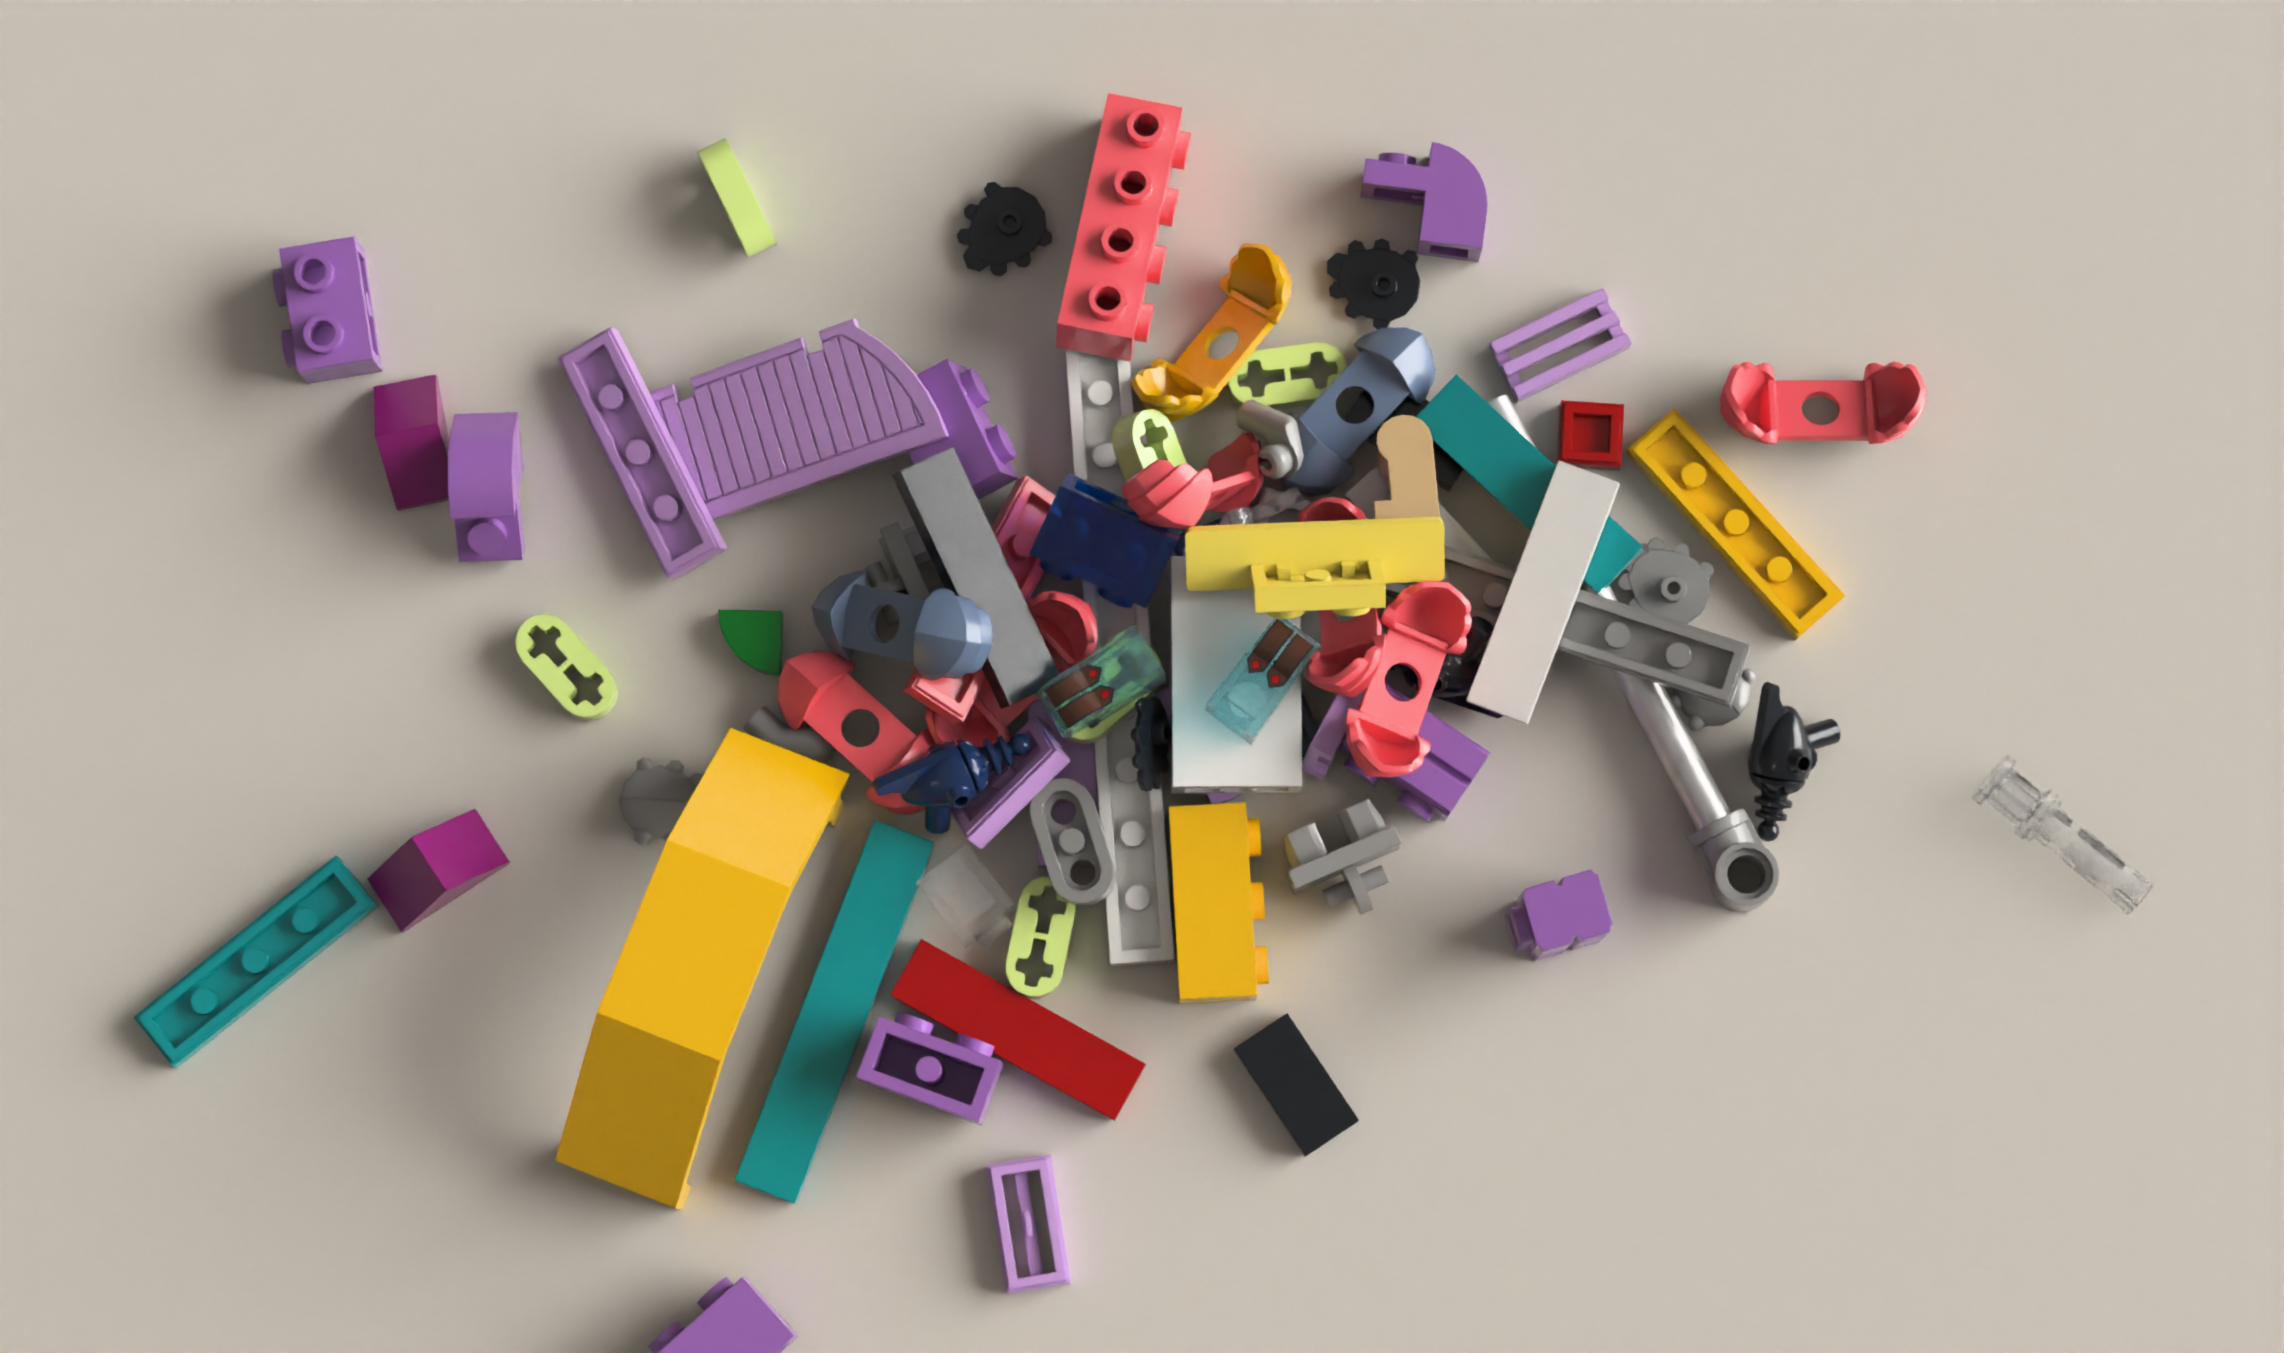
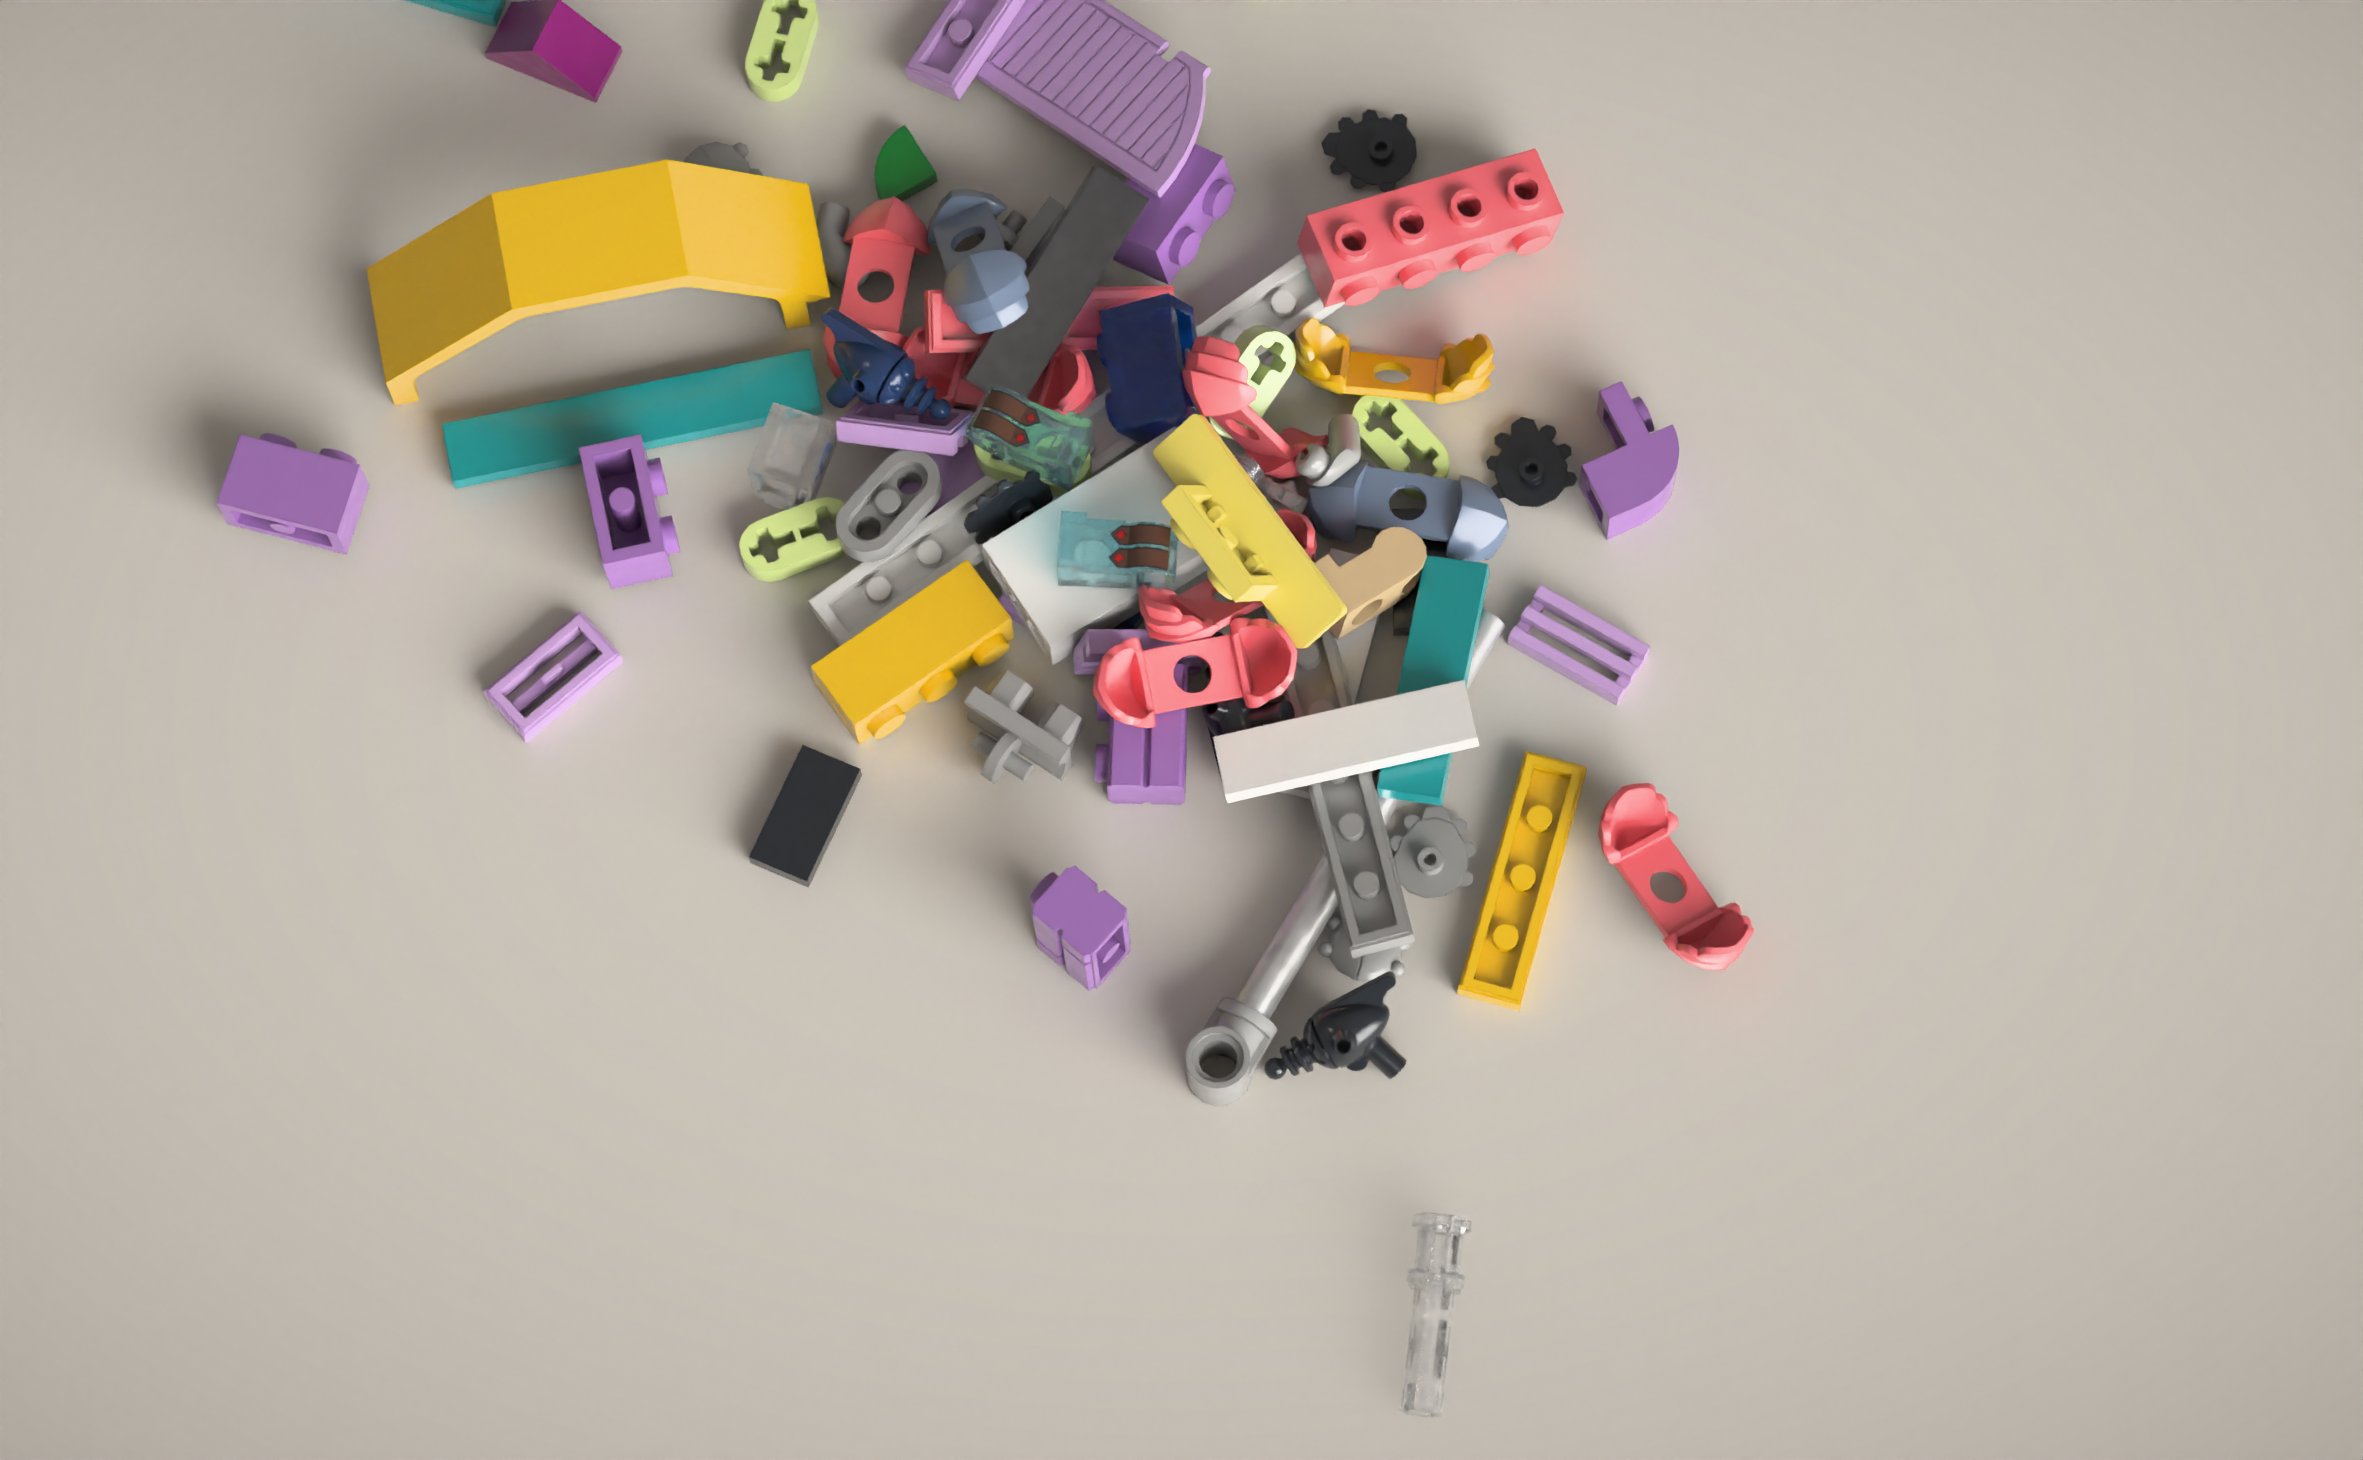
camera: 60 degrees right, 10 degrees down
(1018, 1029) = (709, 570): red tile -> none
(1590, 434) = (1518, 716): red tile -> none

